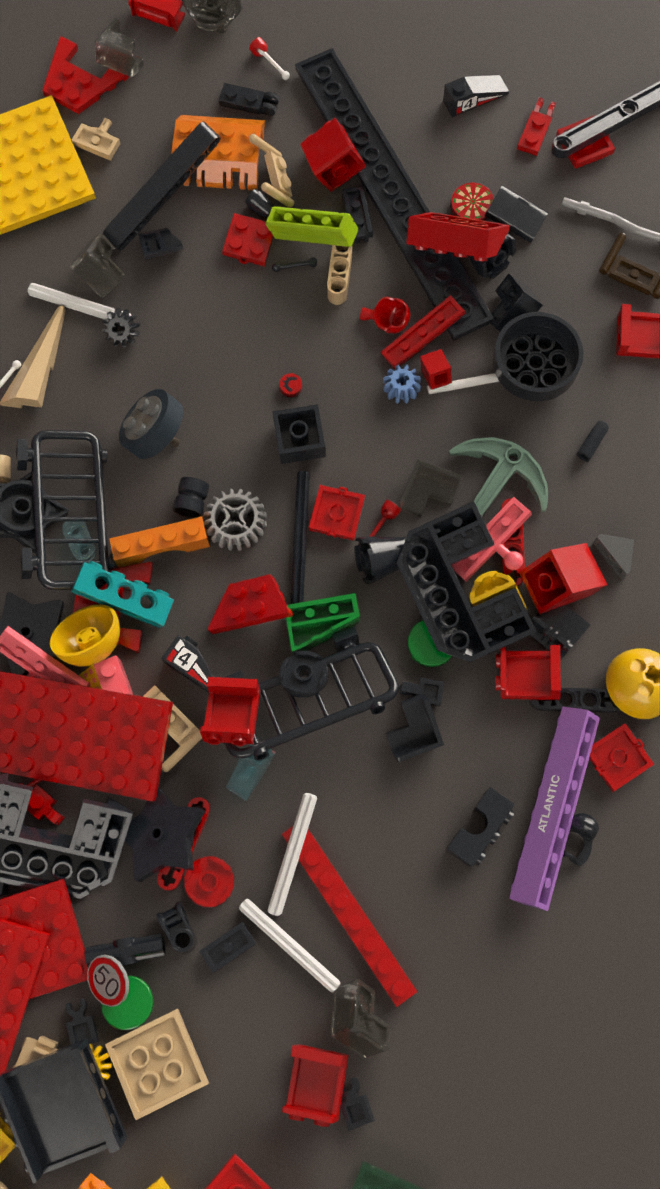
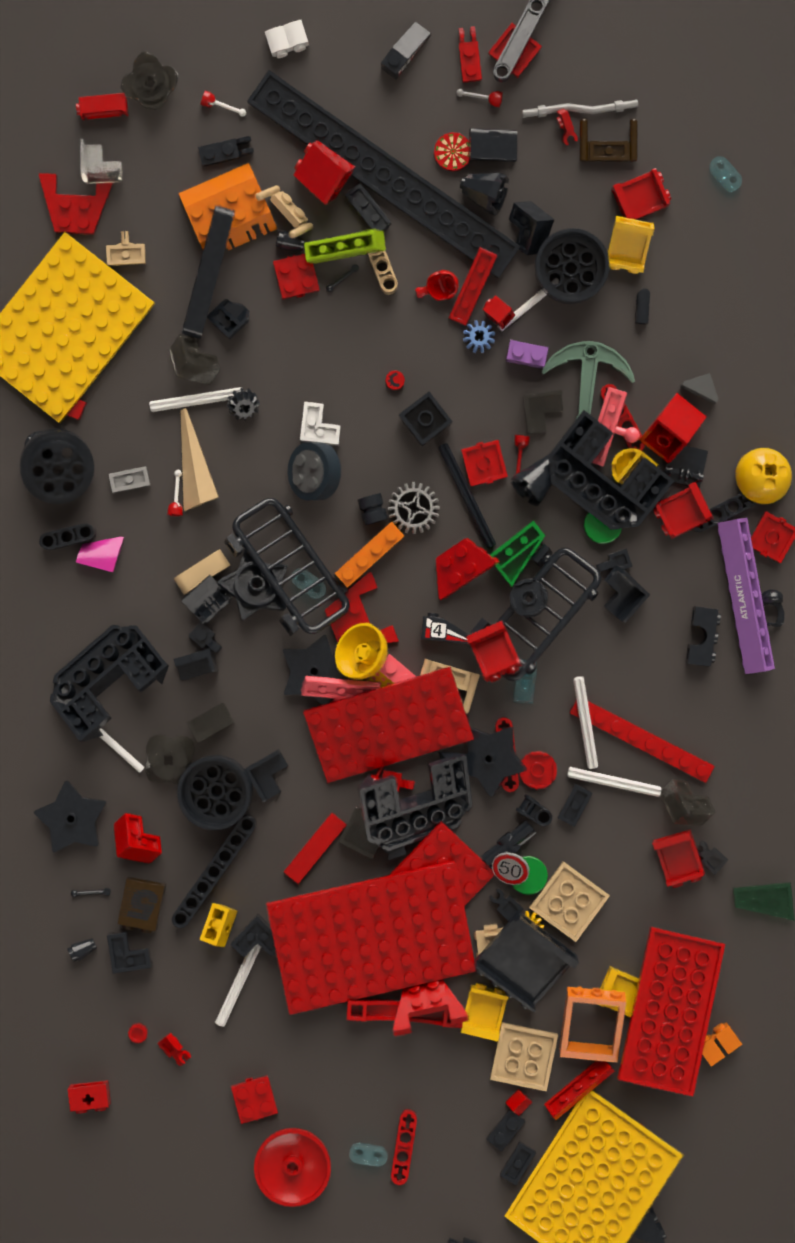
camera: 30 degrees left, 15 degrees up
(85, 587) = (397, 607): teal brick -> none
(178, 384) = (314, 430): none -> white panel
(366, 31) = (287, 39): none -> white brick
(442, 424) = (527, 354): none -> medium lavender brick
(456, 235) = (461, 197): red slope -> none
(541, 174) = (494, 98): none -> hinge
(602, 226) = (564, 121): none -> red plate
(610, 369) = (629, 244): none -> yellow panel

